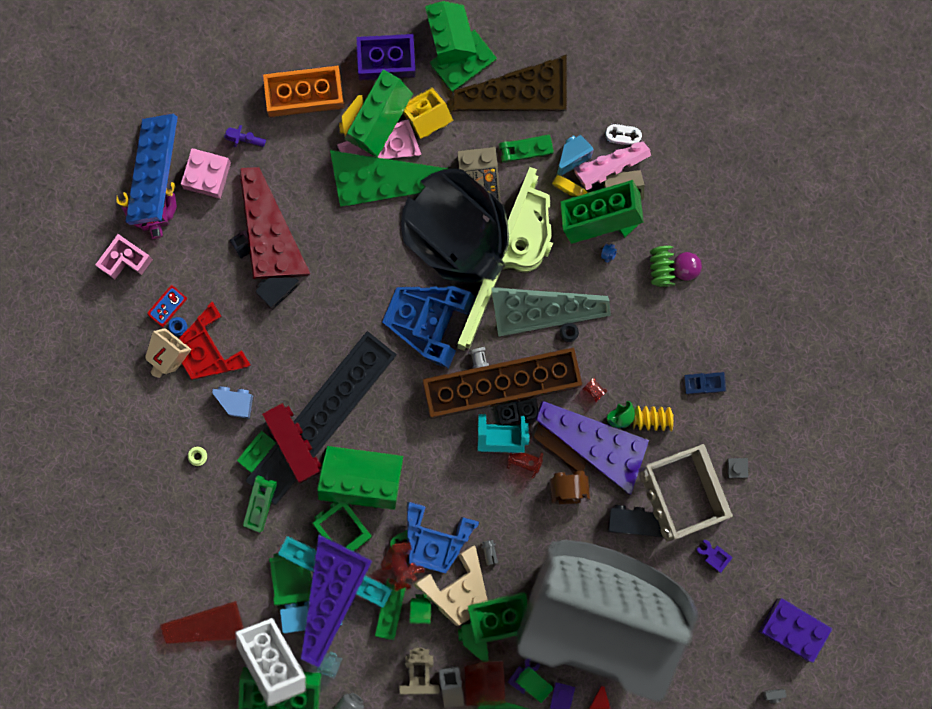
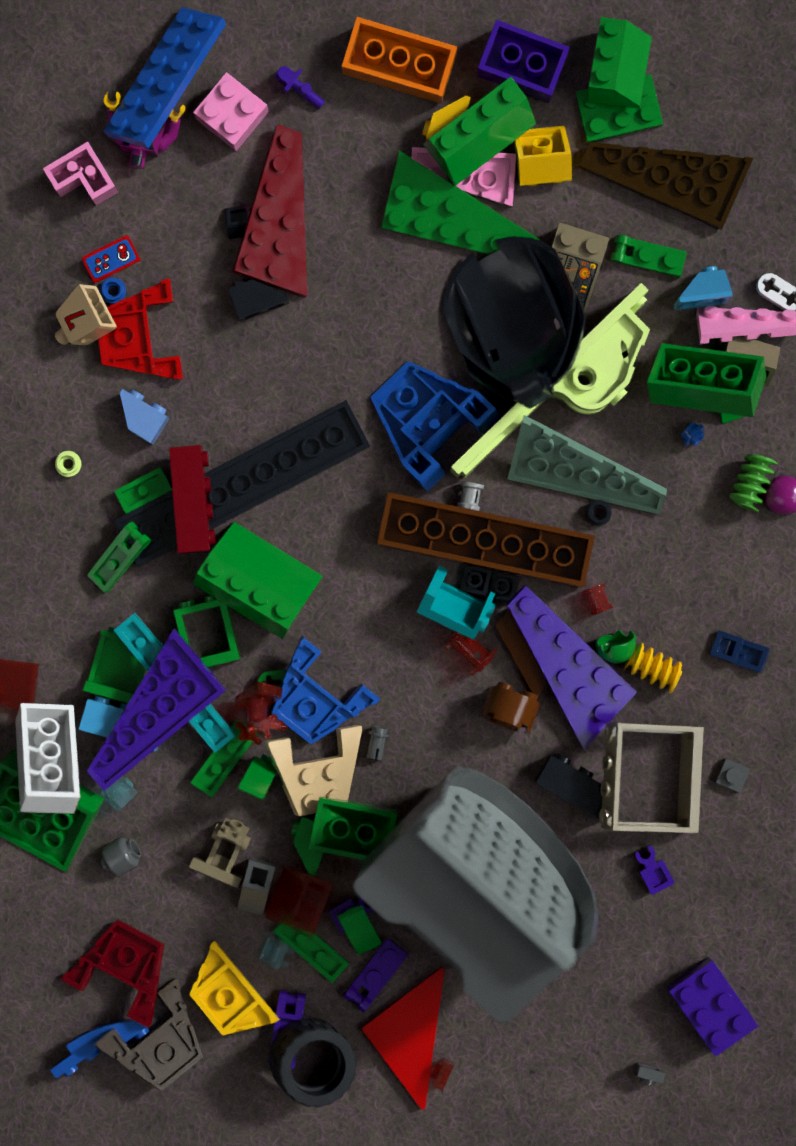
camera: 25 degrees right, 5 degrees up
(568, 187) = (680, 328): yellow beam -> none

